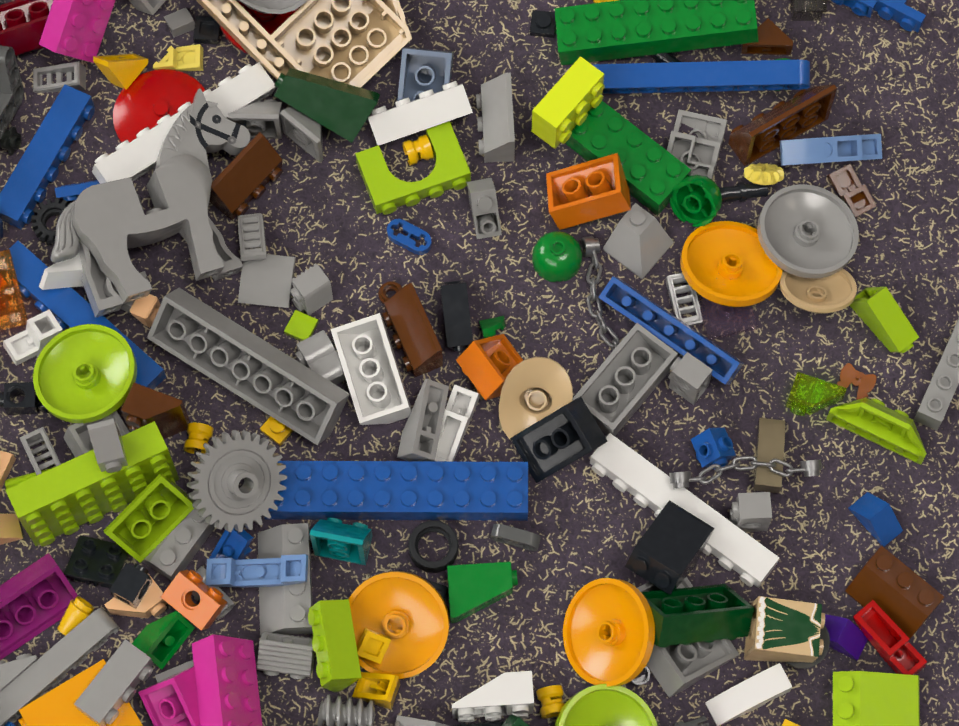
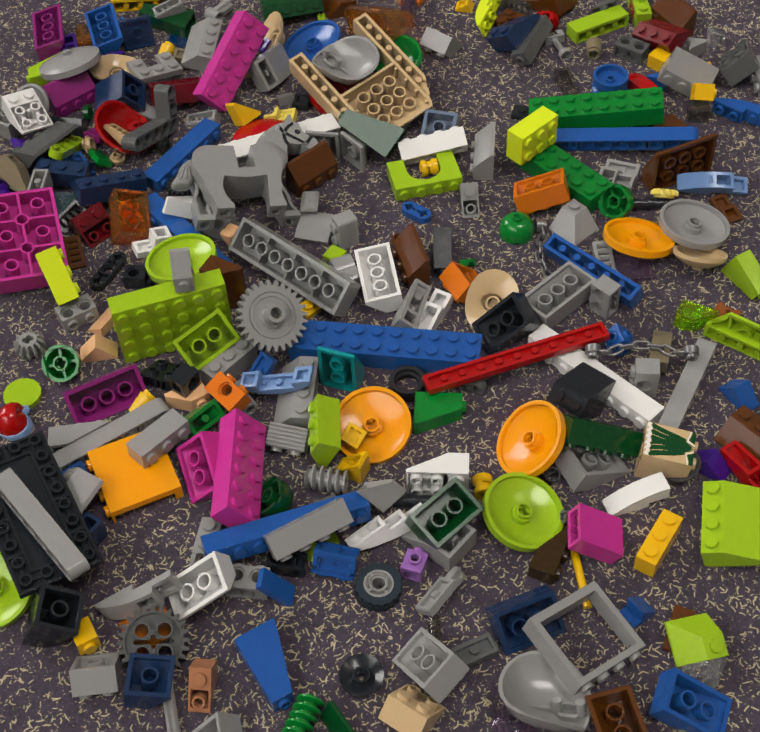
camera: 10 degrees right, 20 degrees down
(578, 500) = (515, 358): none -> red plate
(806, 519) = (688, 385): none -> light grey beam

